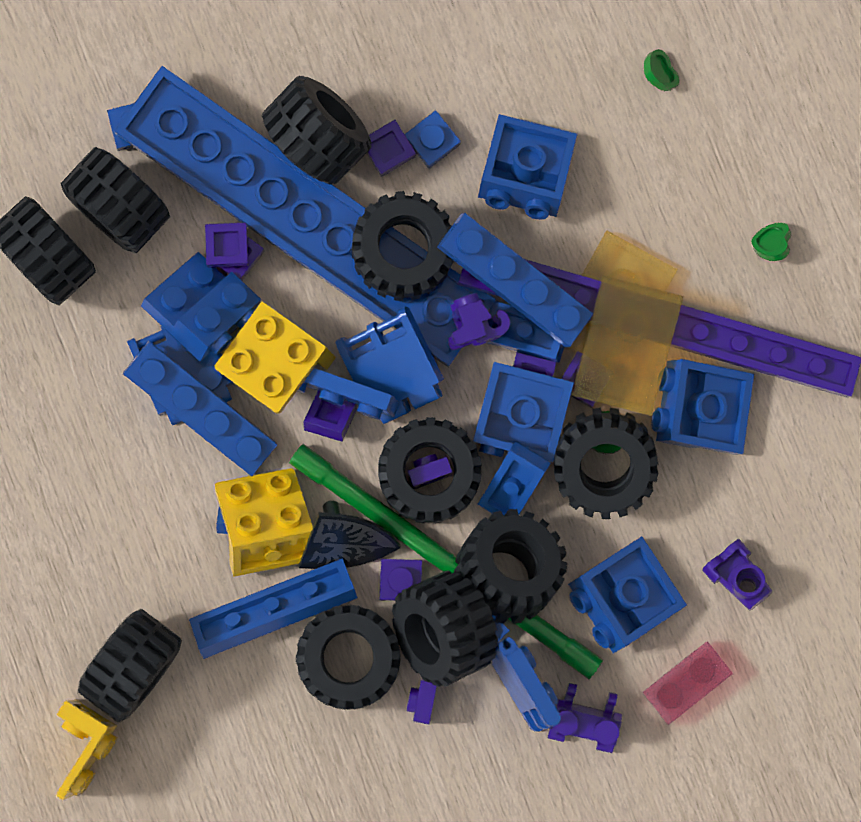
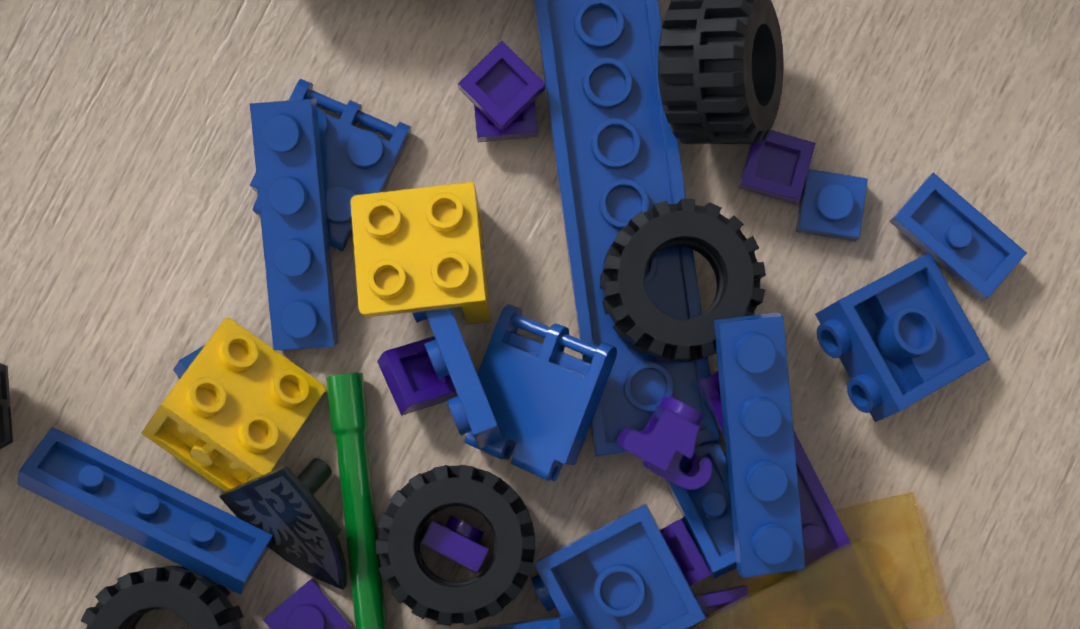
camera: 50 degrees right, 0 degrees up
(201, 306) = (408, 122): blue plate -> none
(504, 93) = (958, 237): none -> blue plate

